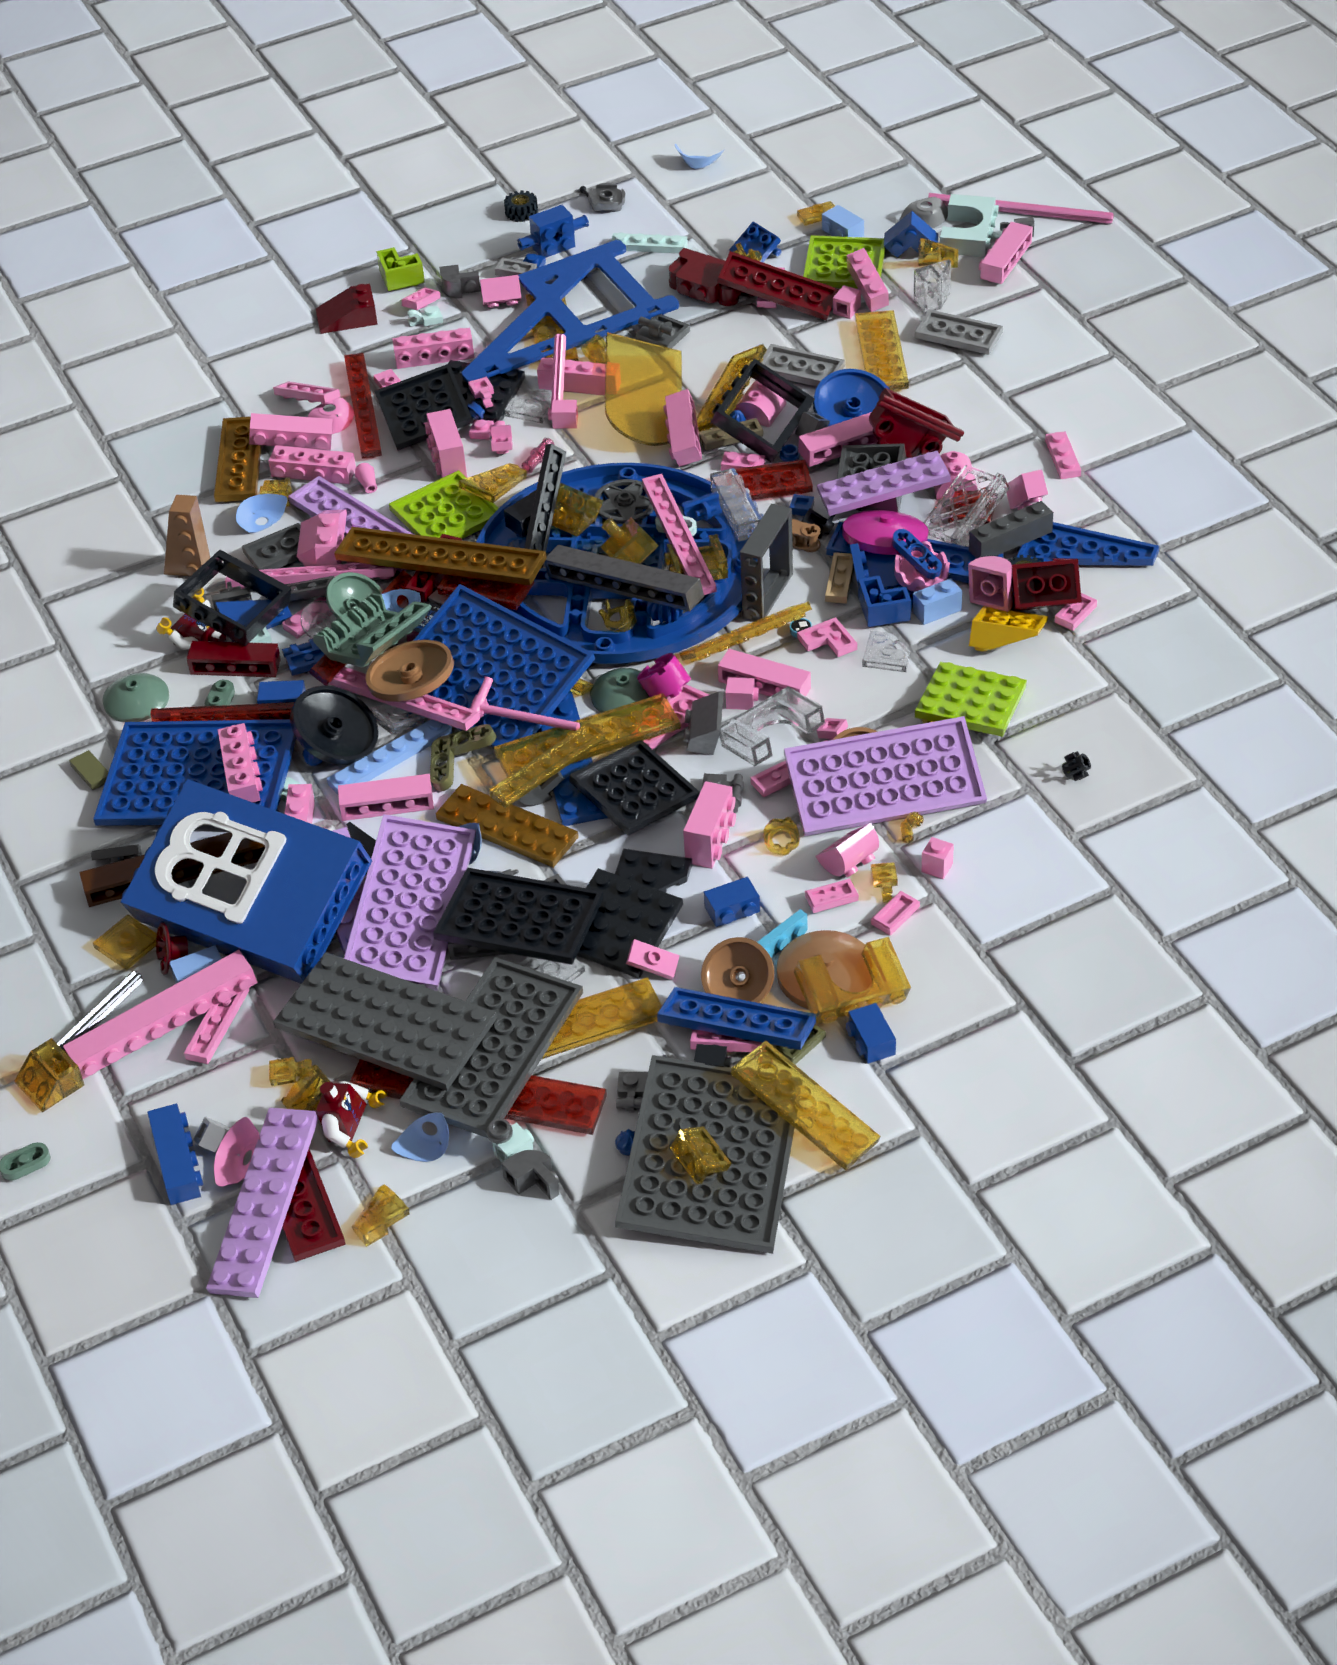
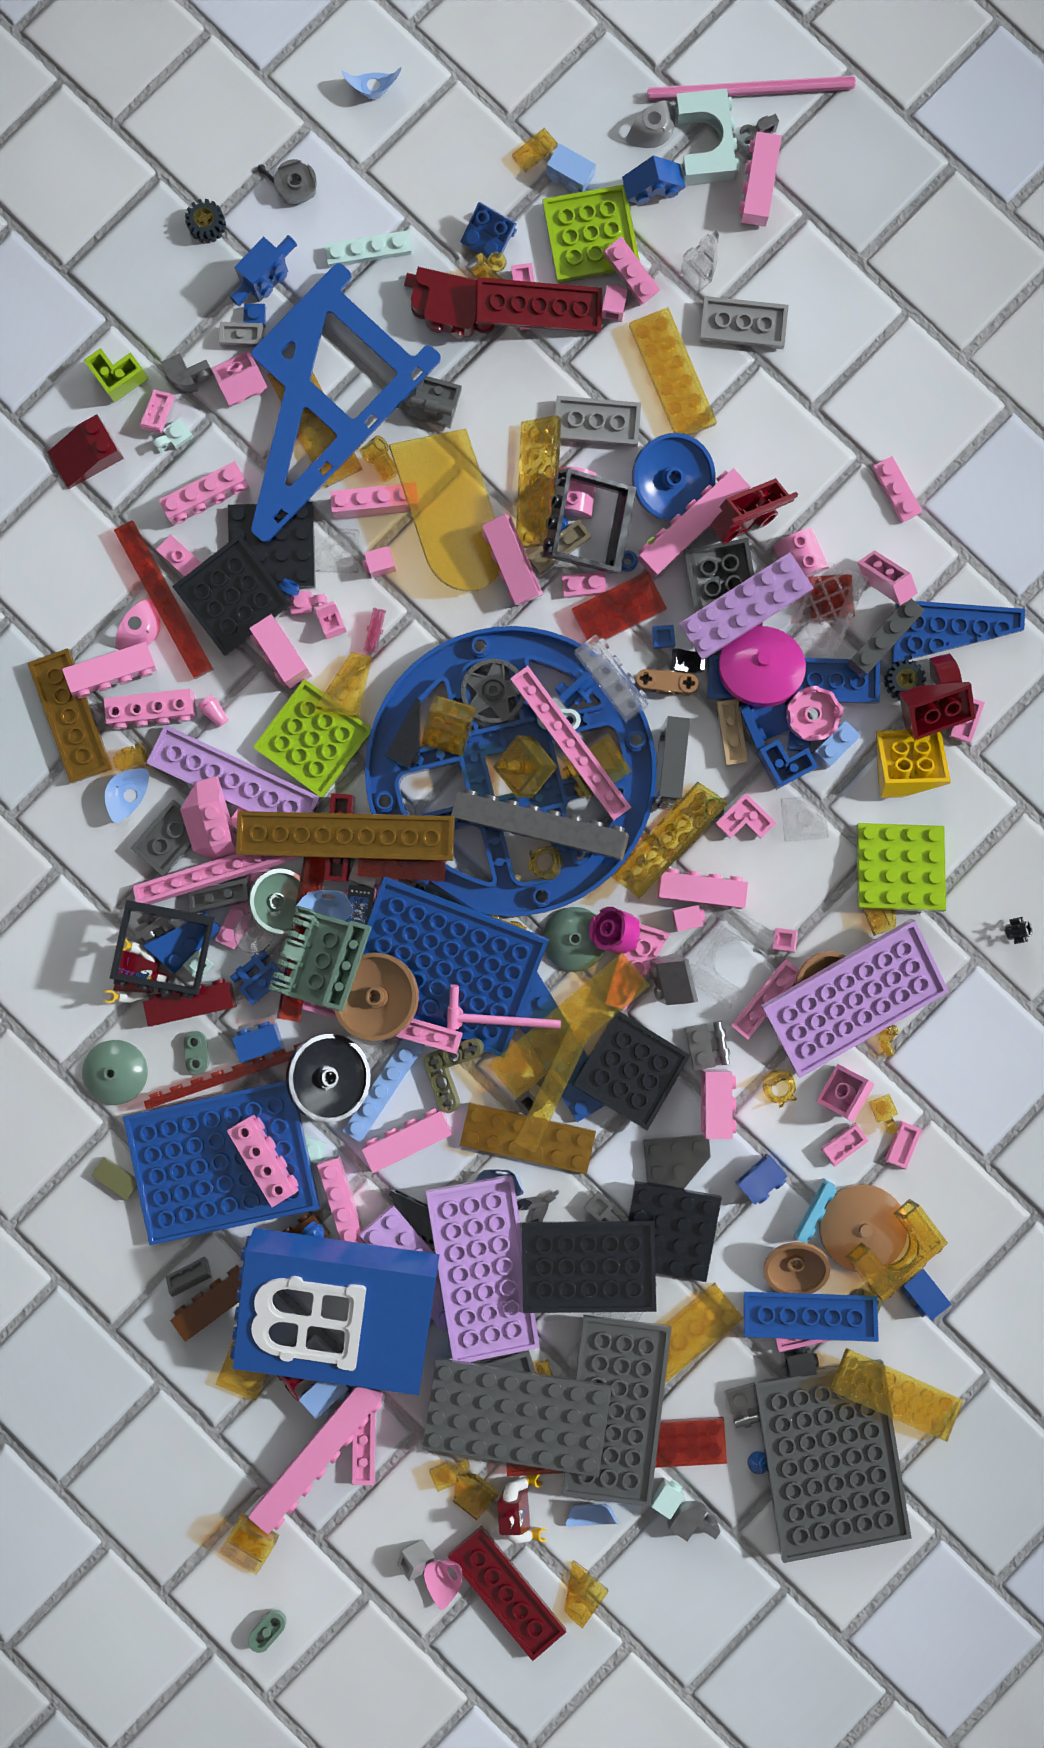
camera: 20 degrees left, 40 degrees up
(103, 1008) = (255, 1458): axle -> none
(174, 1153) = (390, 1589): blue brick -> none
(186, 538) = (82, 878): medium nougat wedge -> none
(263, 1203) = (486, 1618): lavender plate -> none
(307, 392) = (100, 605): bright pink plate -> none
(482, 389) = (284, 555): bright pink plate -> none
(499, 1131) = (658, 1505): flat silver plate -> none
(545, 498) = (425, 744): black plate -> none
(558, 367) = (357, 513): bright pink axle -> none
(652, 959) = (716, 1268): bright pink plate -> none
(699, 1153) = (831, 1479): clear yellow bracket -> none
(810, 422) = (642, 524): flat silver brick -> none
(915, 545) = (799, 692): blue beam -> none
(933, 252) = (694, 201): clear yellow slope -> none
(937, 857) = (926, 1078): bright pink brick -> none
(991, 582) = (887, 715): bright pink brick -> none

